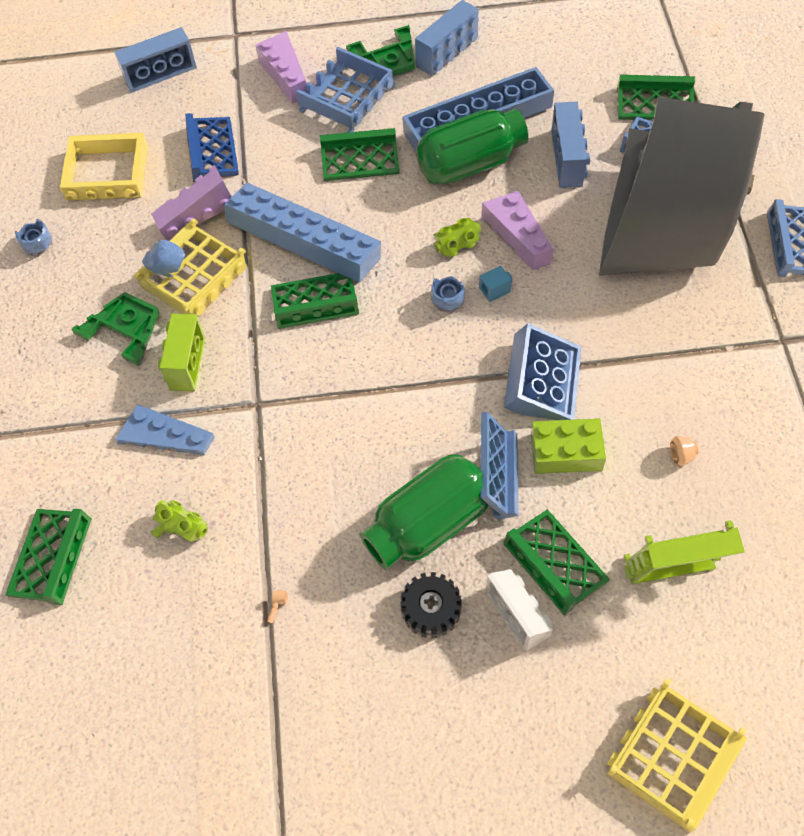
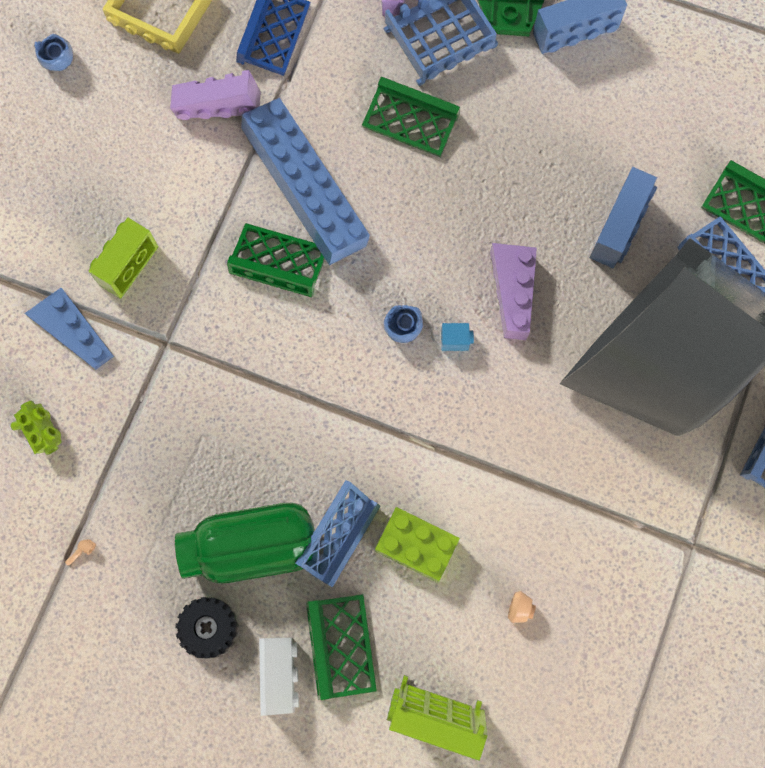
camera: 25 degrees right, 15 degrees up
(127, 317) = (98, 190): green wing -> none
(164, 258) = (153, 149): medium blue hair -> none
(216, 284) = (194, 197): light yellow window -> none
(457, 236) = (449, 265): lime brick -> none
(470, 145) = (520, 169): green piece -> none
(523, 91) = (558, 128): medium blue brick -> none
(542, 375) = (441, 459): medium blue slope -> none

